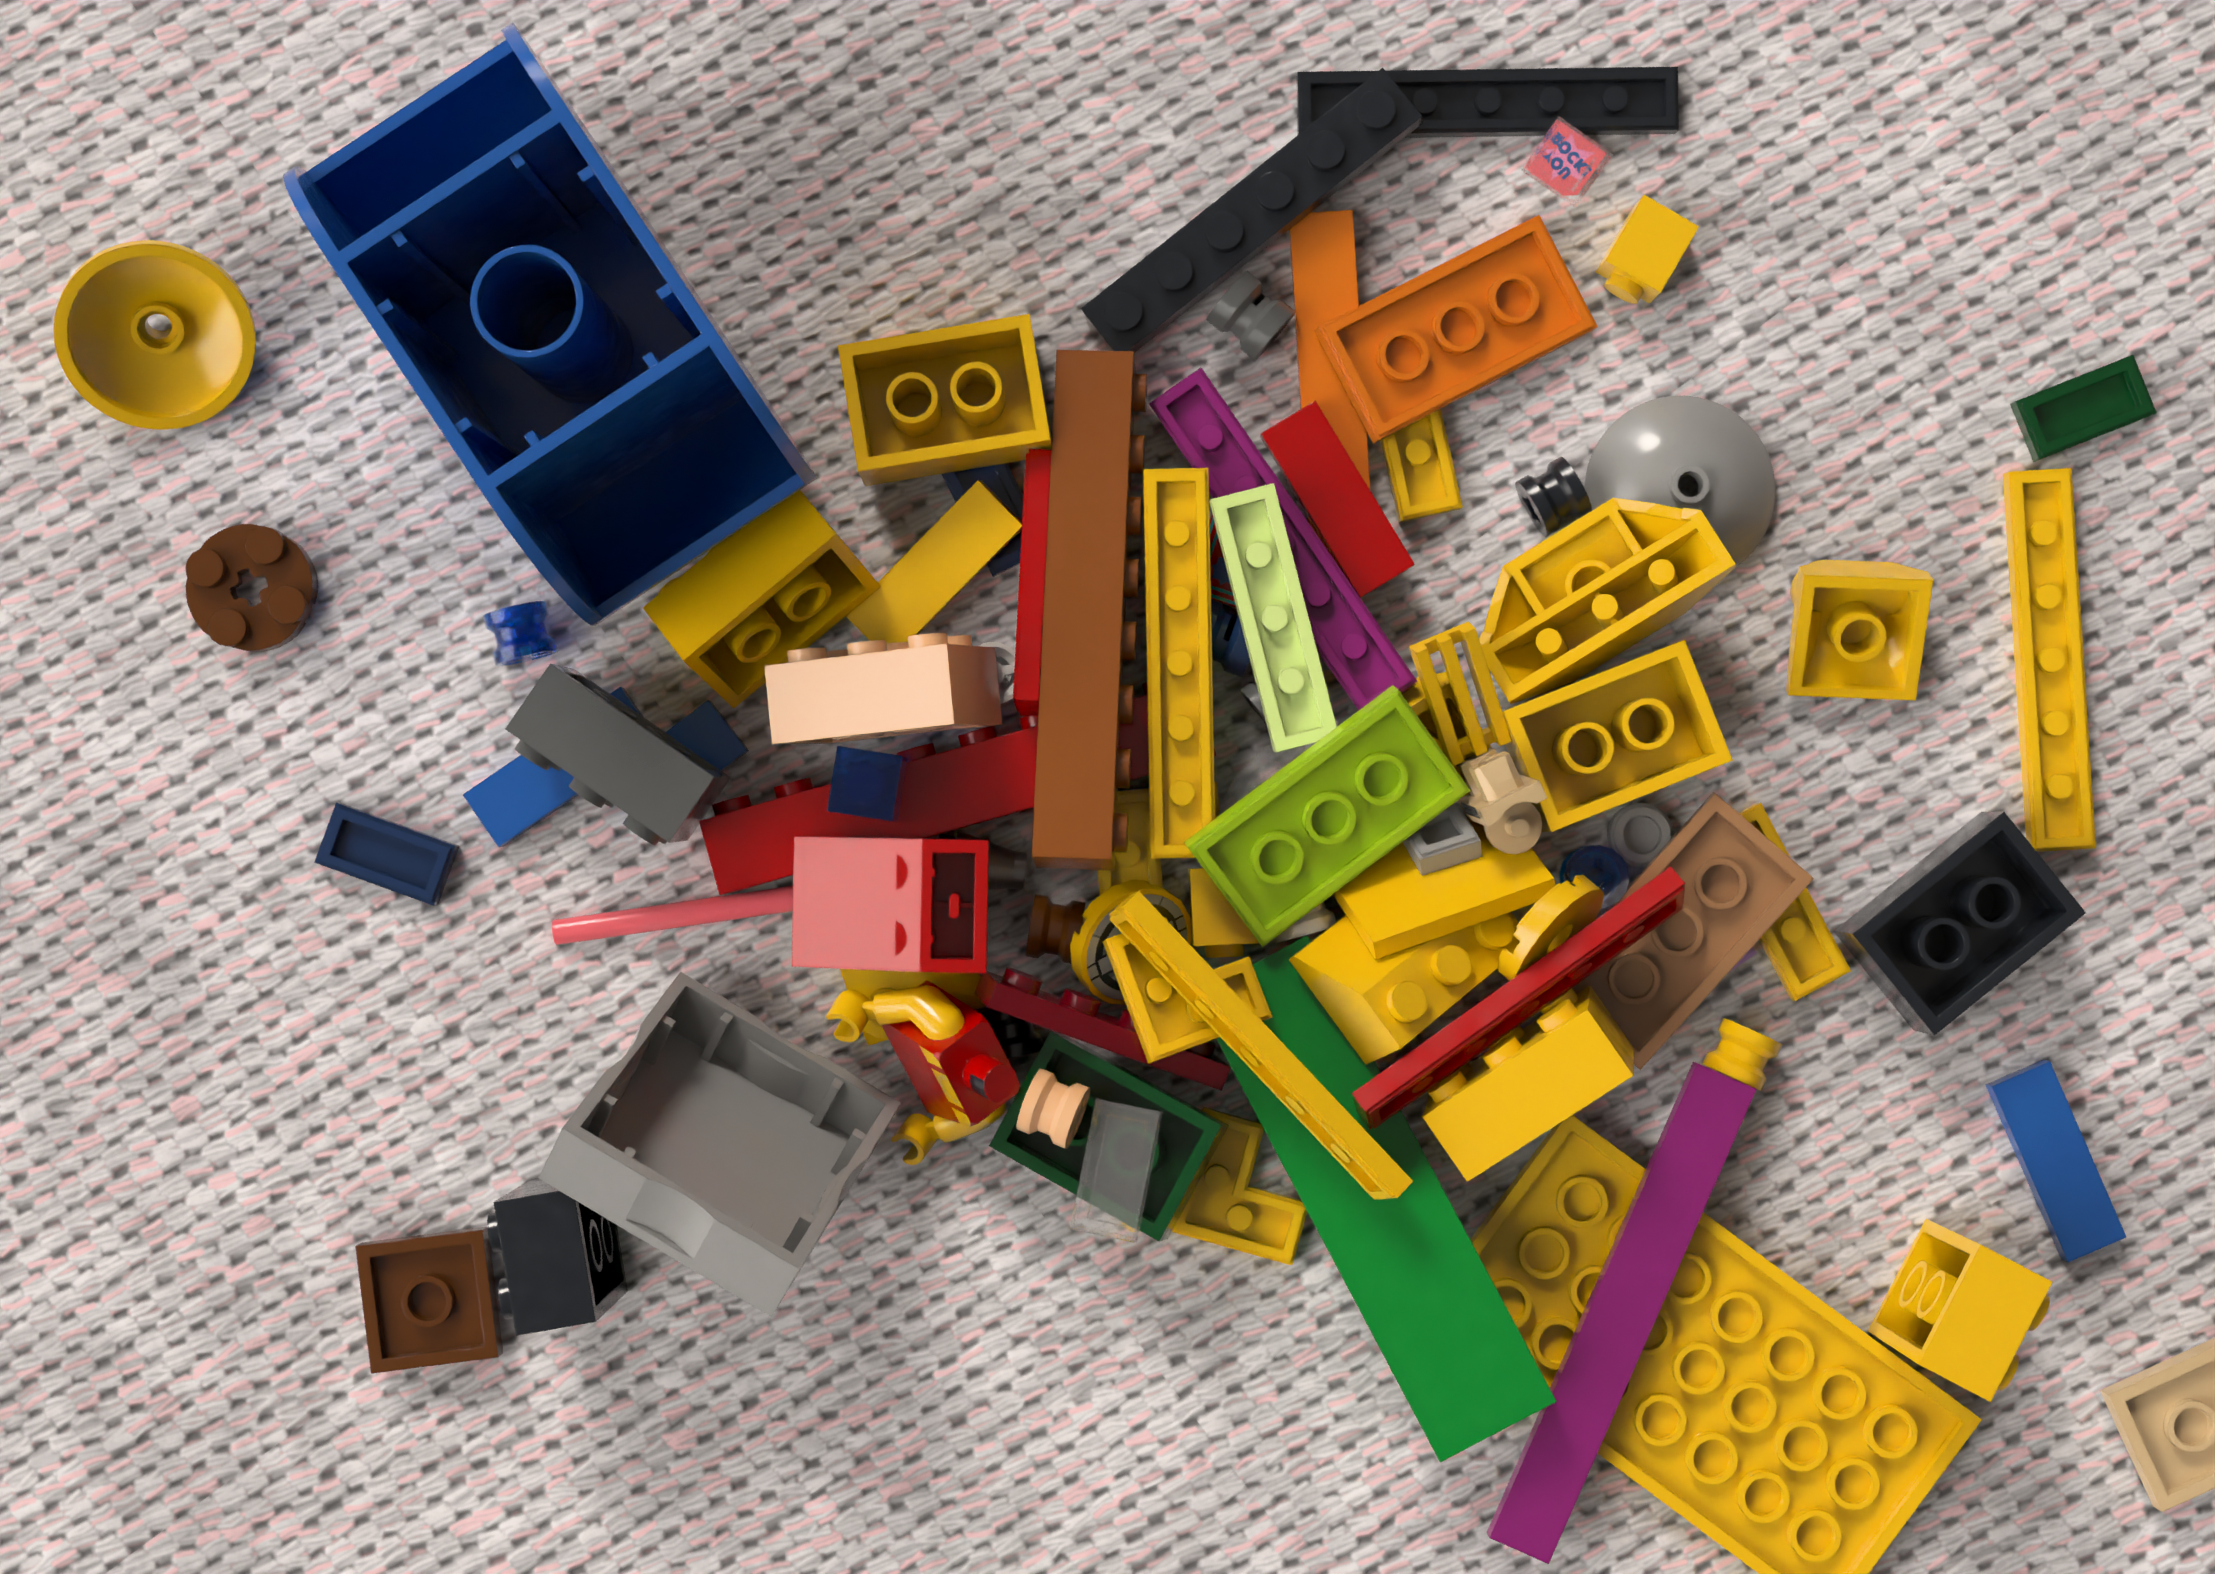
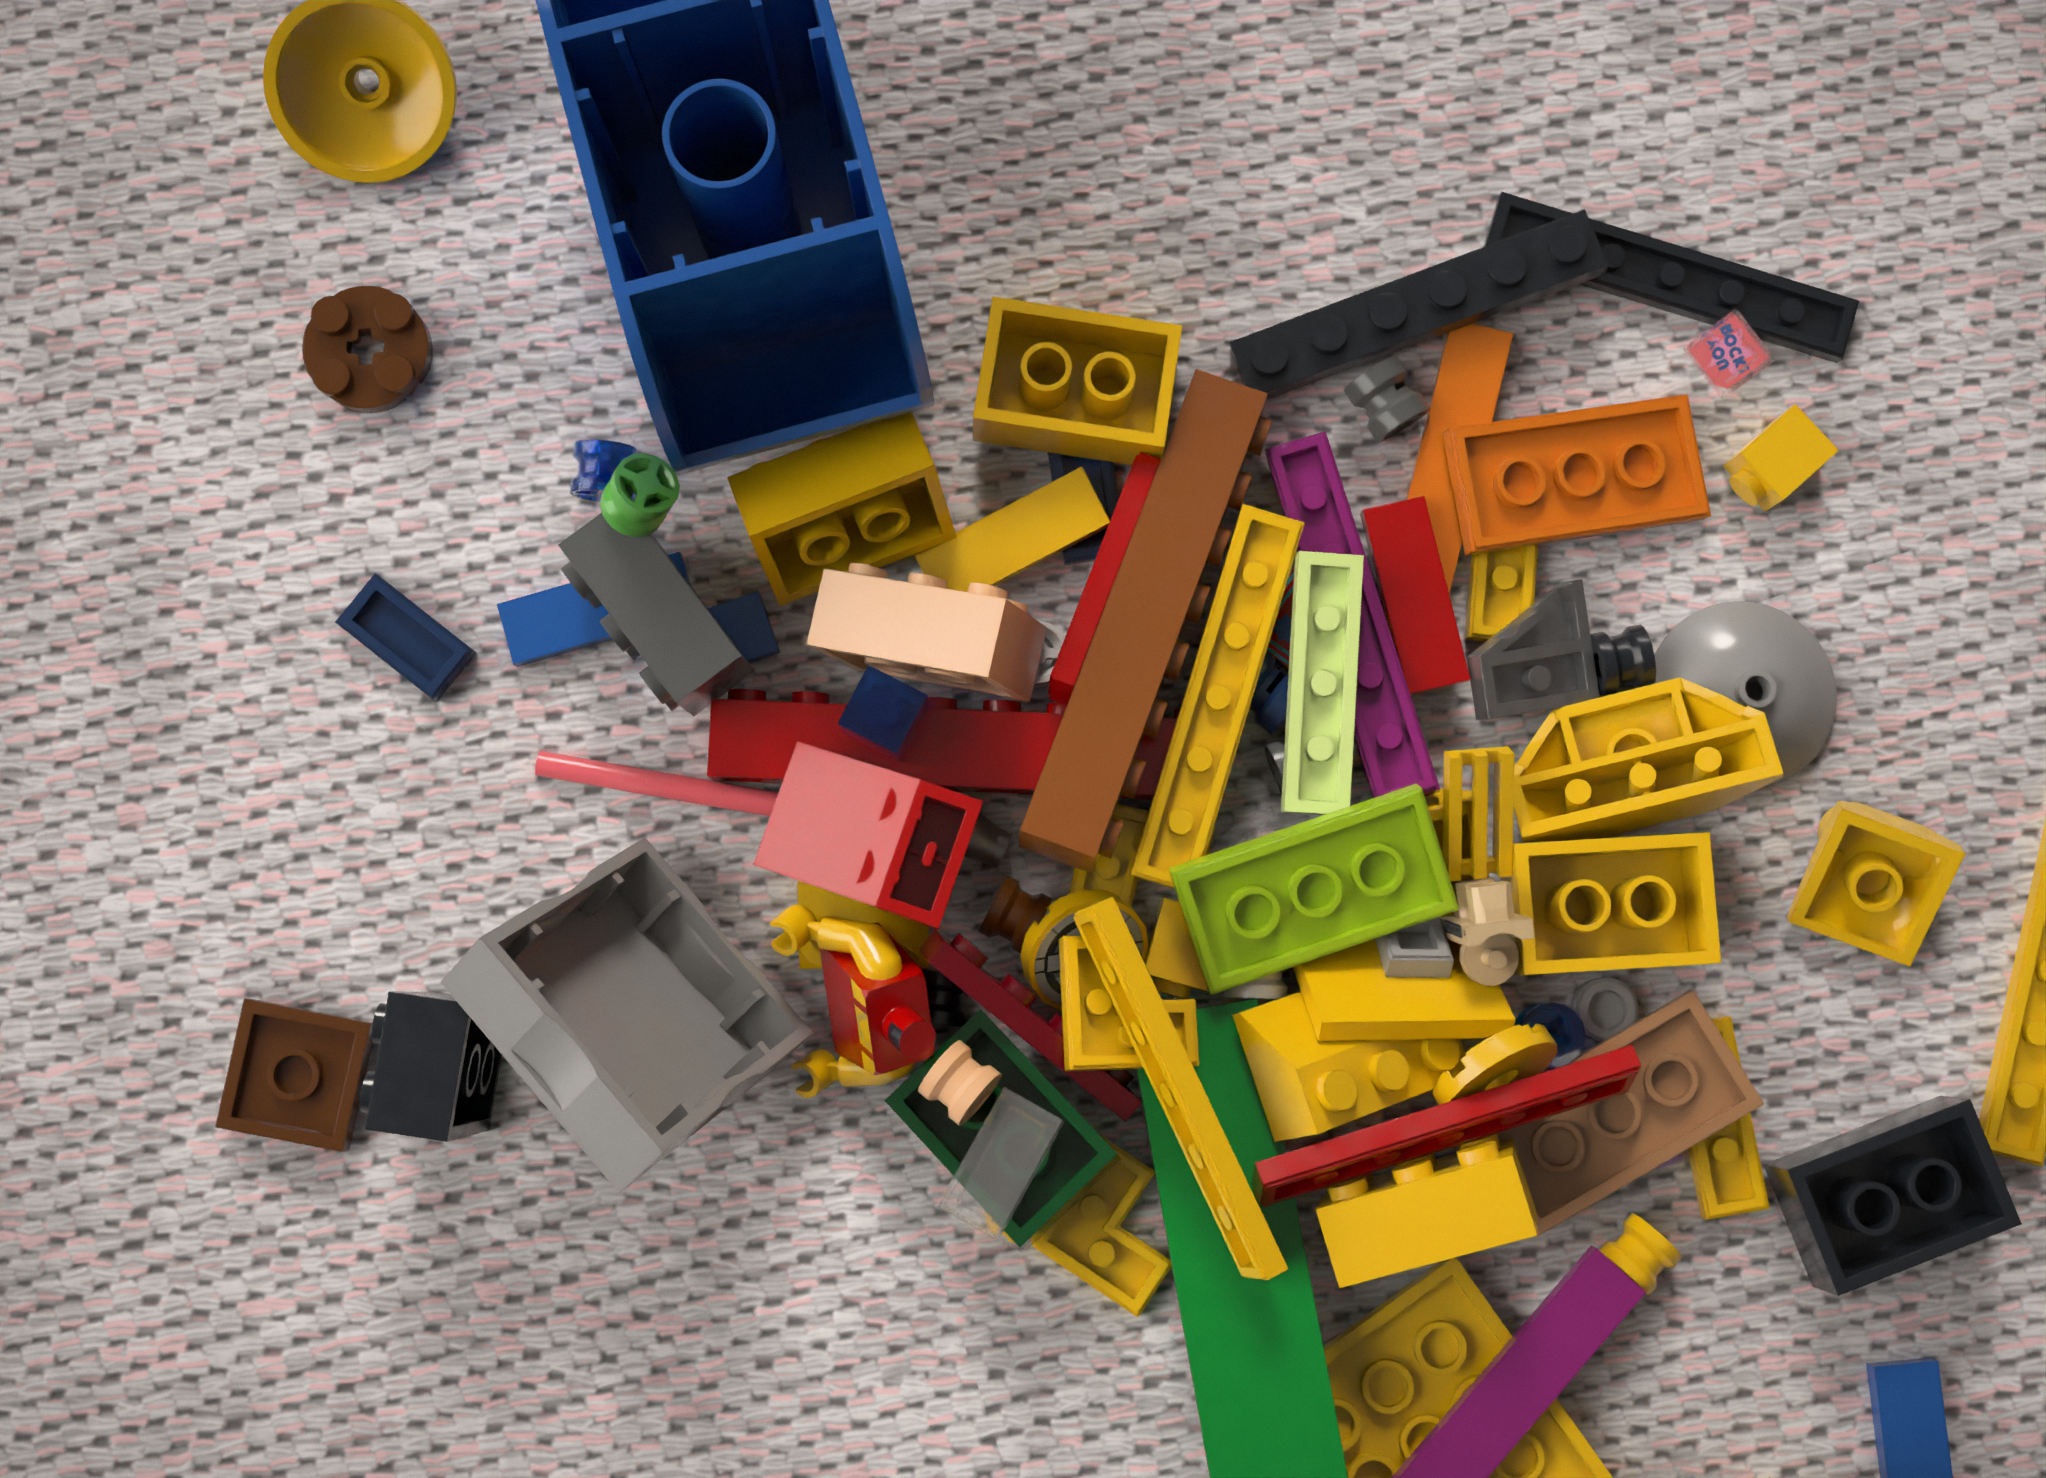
camera: 15 degrees right, 5 degrees down
(580, 650) = (655, 492): none -> bright green wheel
(1472, 522) = (1537, 658): none -> flat silver wing

